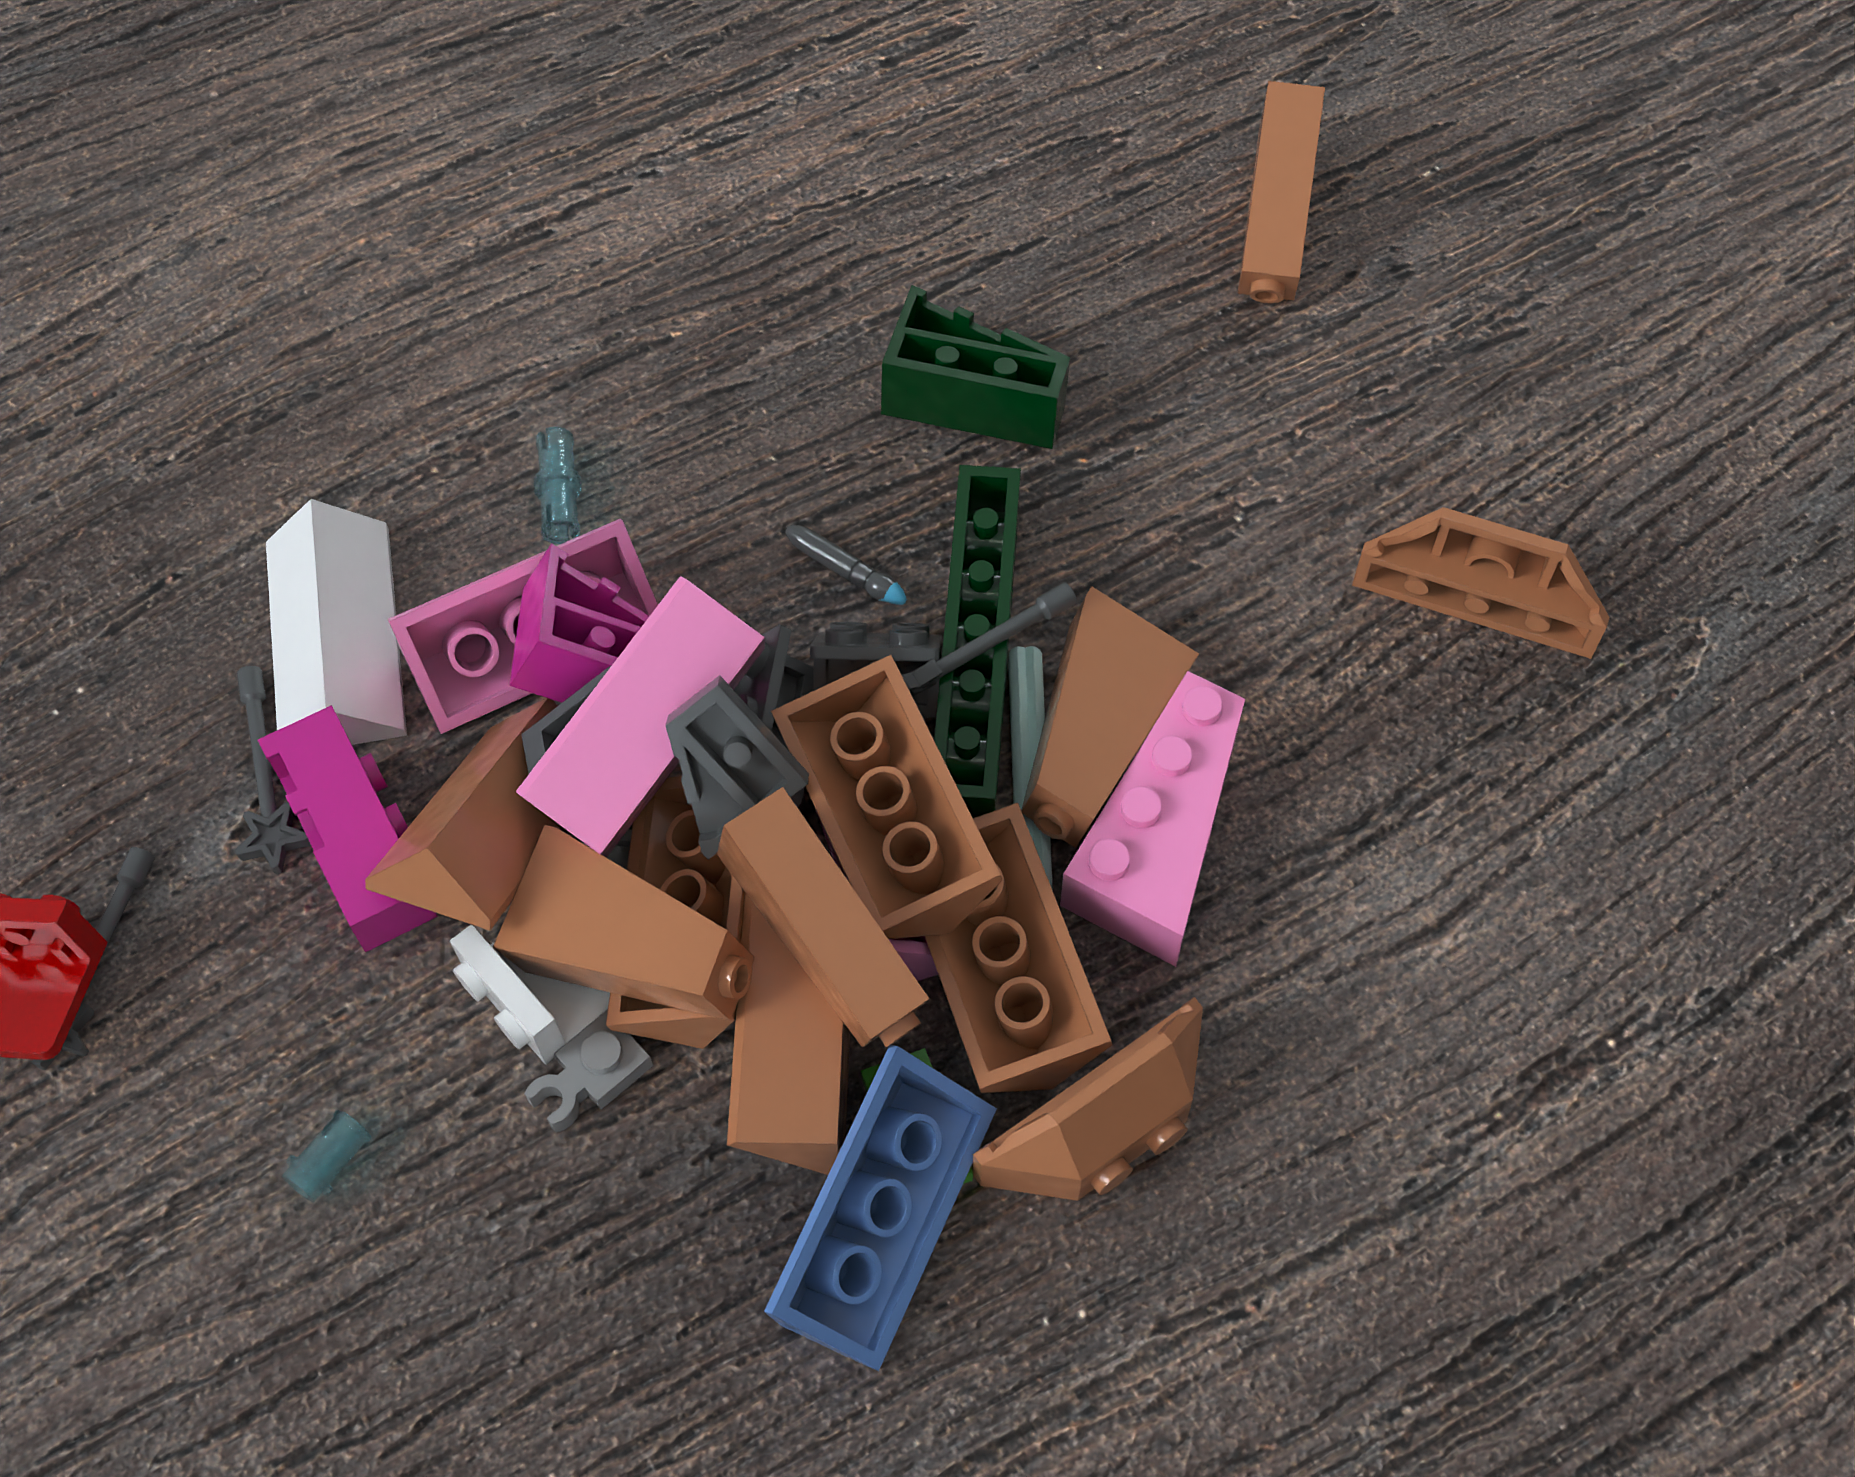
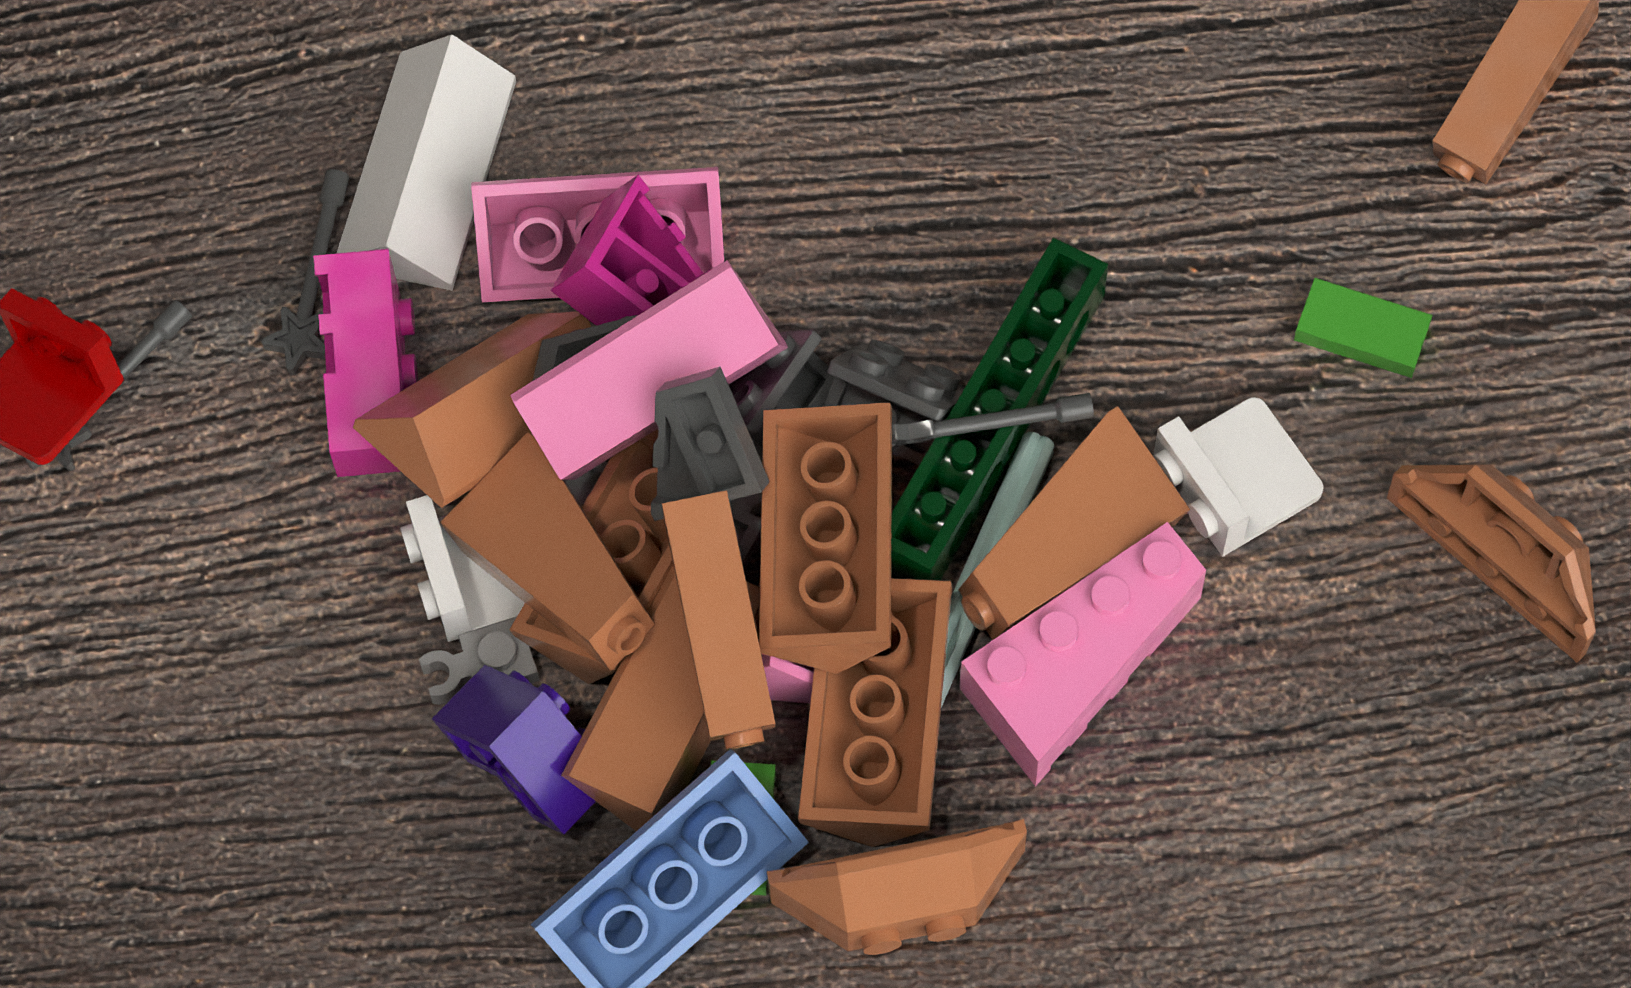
camera: 25 degrees right, 5 degrees up
(325, 1156) = (233, 643): clear light blue pin -> none
(557, 485) = (684, 102): clear light blue pin -> none
(665, 1127) = (521, 739): none -> dark purple brick
(877, 584) = (936, 317): dark grey piece -> none
(970, 378) = (1115, 146): dark green wedge -> none
(1219, 610) = (1237, 473): none -> white bracket
(1257, 450) = (1363, 327): none -> bright green tile

